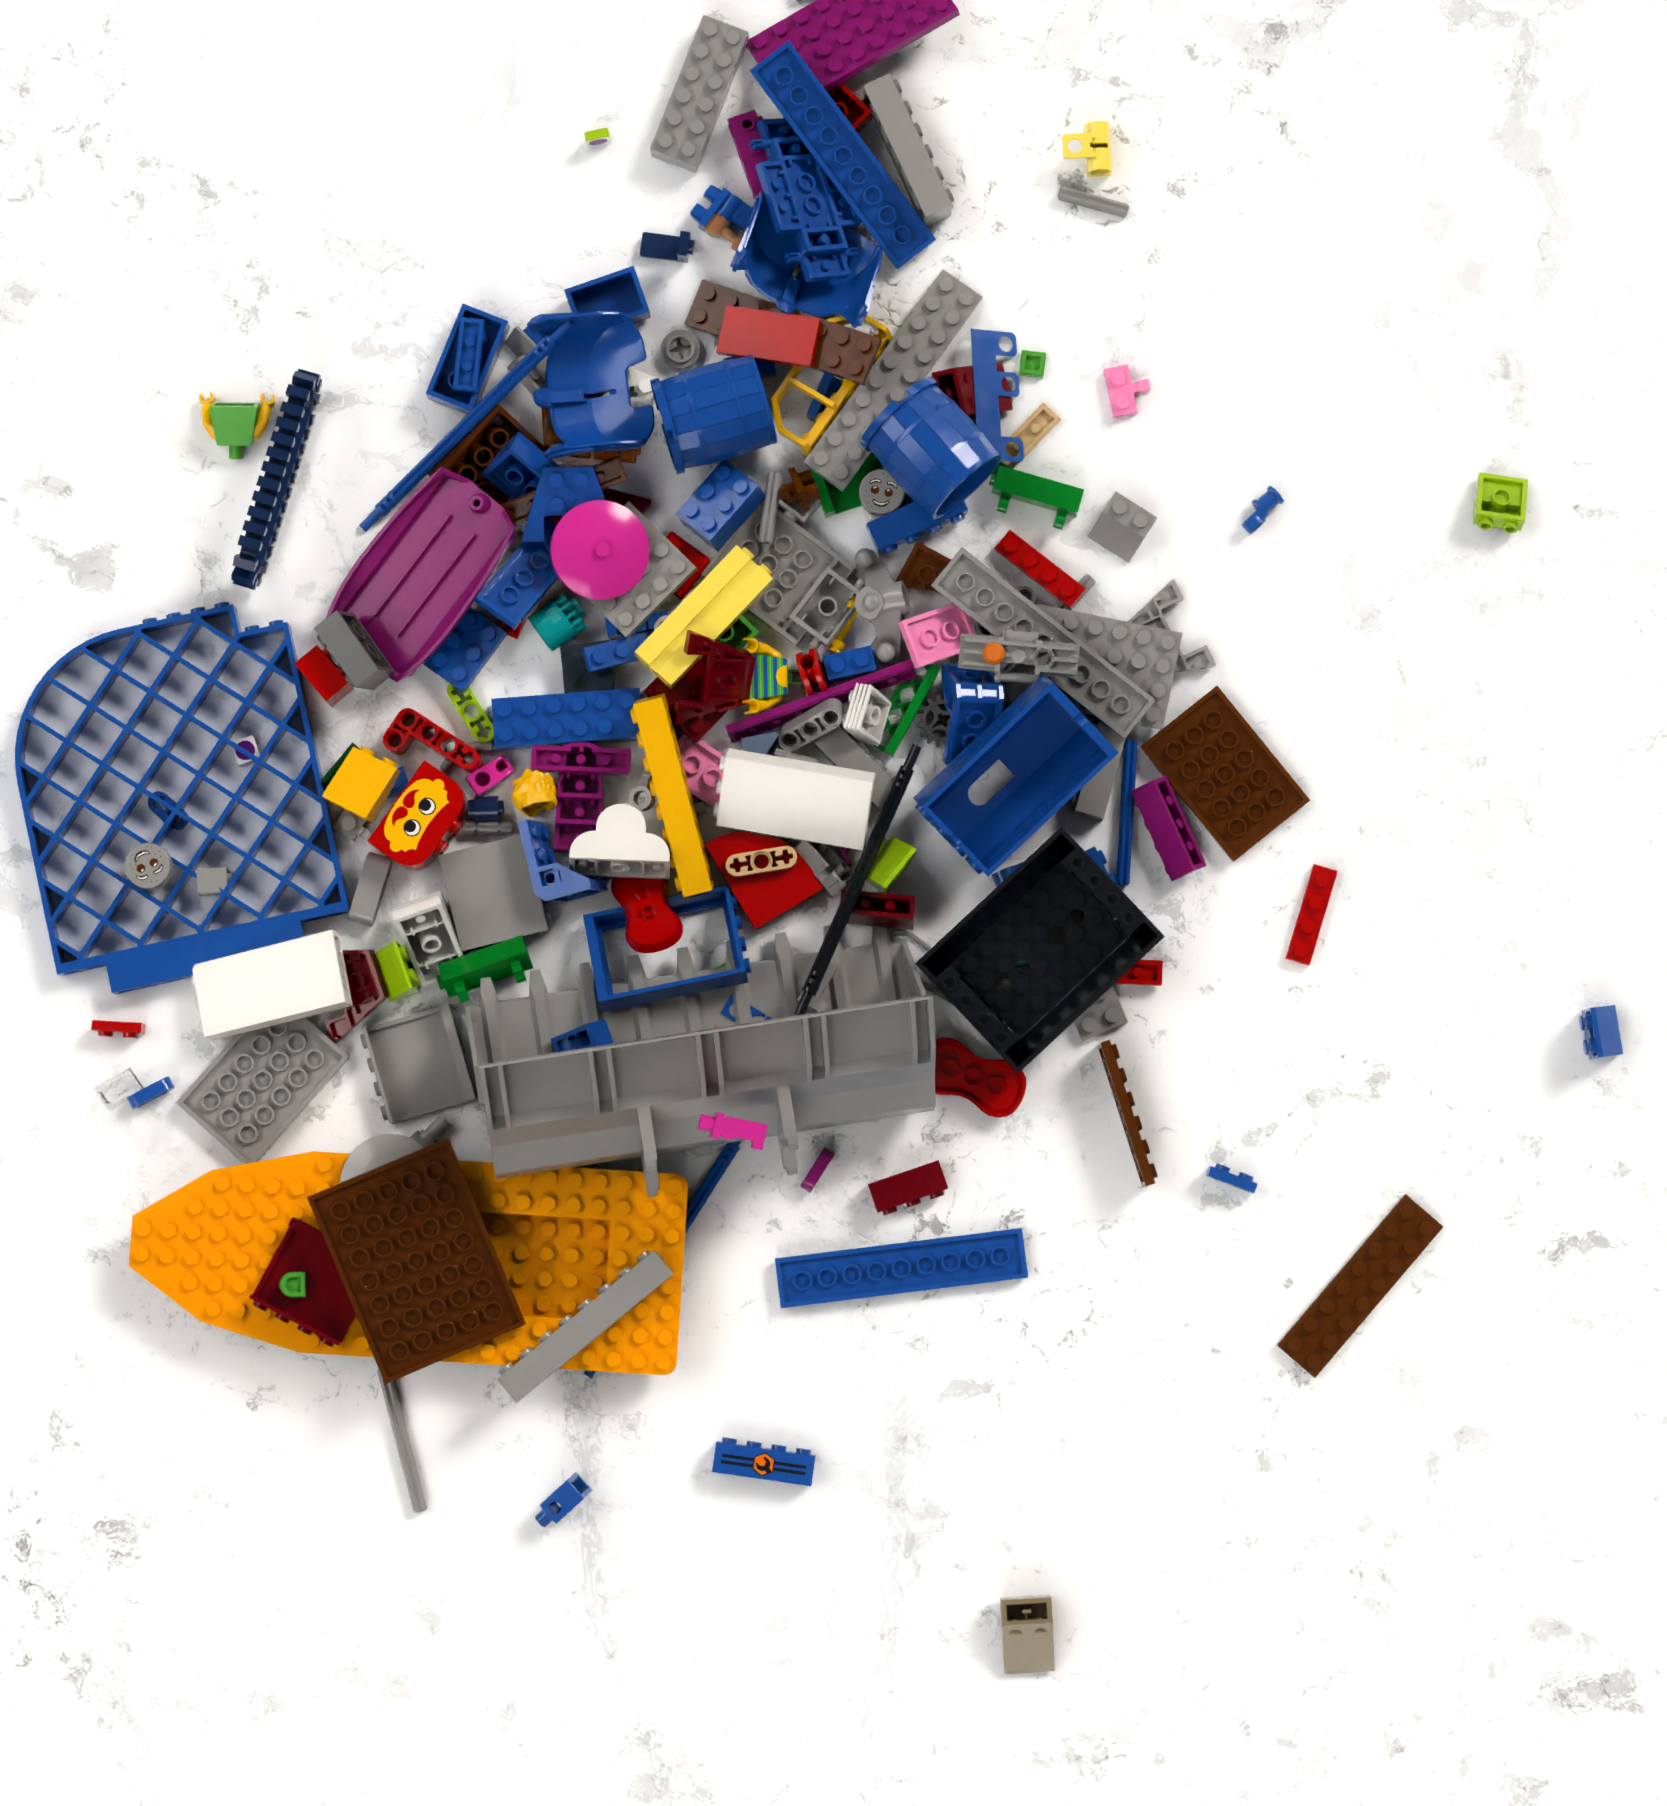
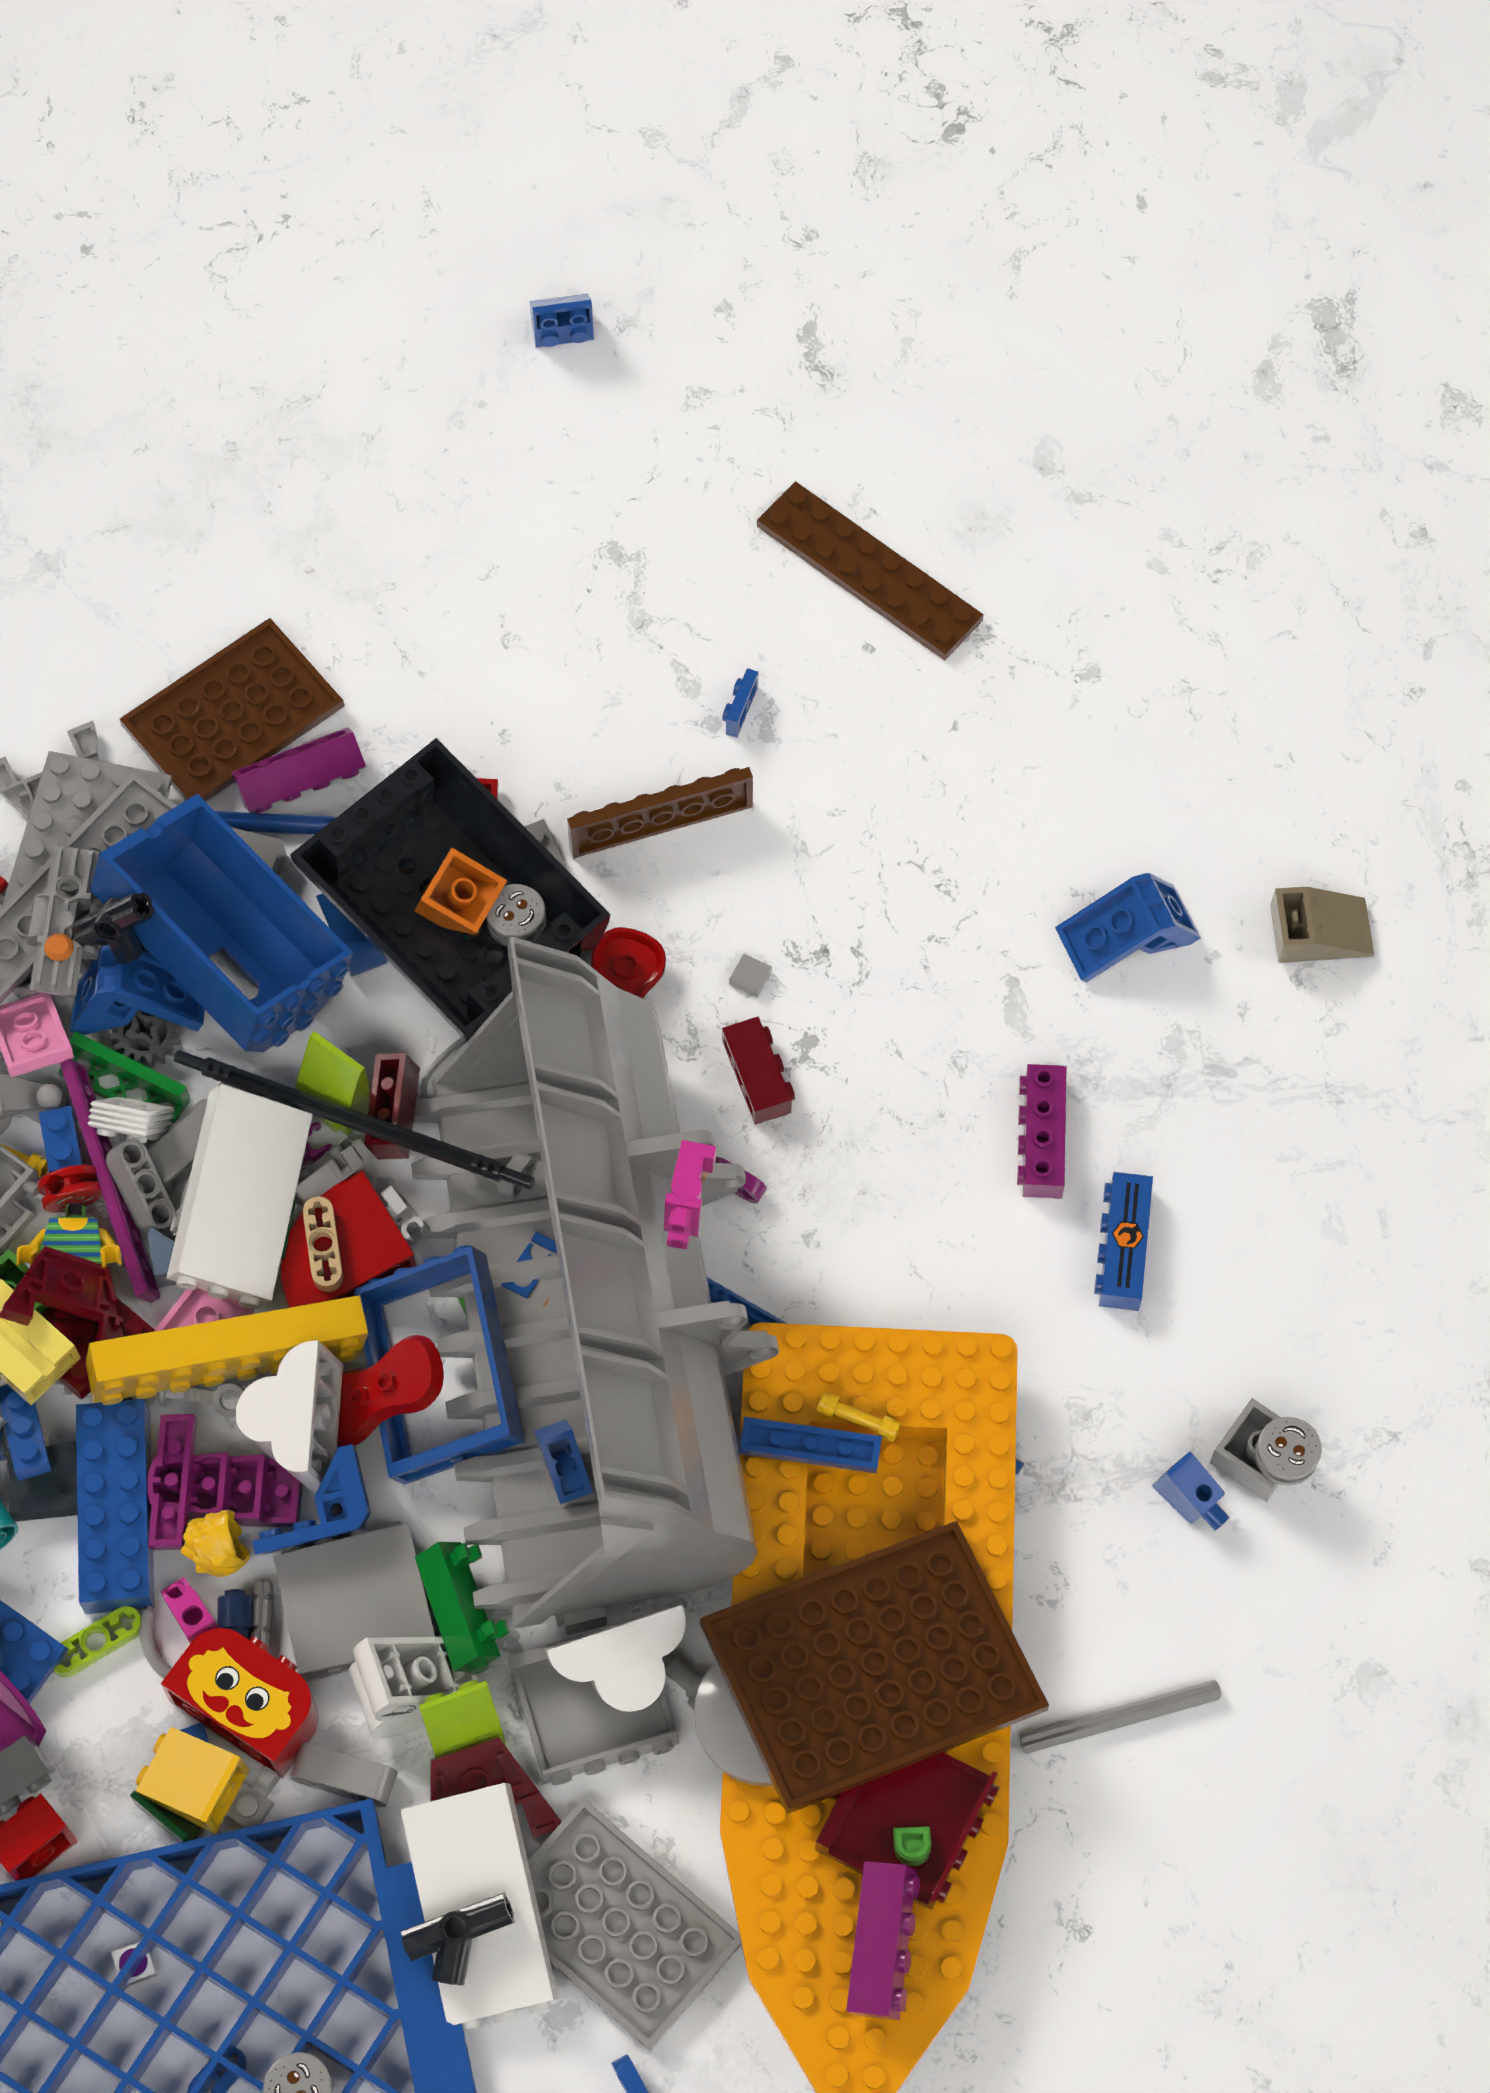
camera: 90 degrees left, 20 degrees down
(211, 879) = (323, 2002): light grey brick -> none
(224, 1261) = (882, 1941): none -> magenta brick
(237, 966) = (452, 1950): none -> black piece
(437, 743) = (141, 1684): red beam -> none
(438, 1082) = (623, 1658): none -> white brick
(583, 1571) = (1288, 1451): none -> light grey head
(585, 1326) = (956, 1443): light grey brick -> none
(586, 1219) = (810, 1445): none -> blue plate
(594, 1552) = (1237, 1450): none -> light grey brick
(599, 1275) = (830, 1405): none -> yellow bar
(793, 920) = (401, 1209): none -> light grey plate
(853, 1405) = (1043, 1131): none -> magenta brick
(901, 1268) = (863, 1081): blue plate -> none
(991, 1183) = (750, 975): none -> light grey tile
(1004, 695) = (115, 925): none -> black piece
(1026, 1480) = (1134, 916): none -> blue bracket
(1028, 1000) = (517, 914): none -> light grey head
(1041, 958) = (460, 894): none -> orange slope
(1311, 914) = (413, 621): red plate -> none

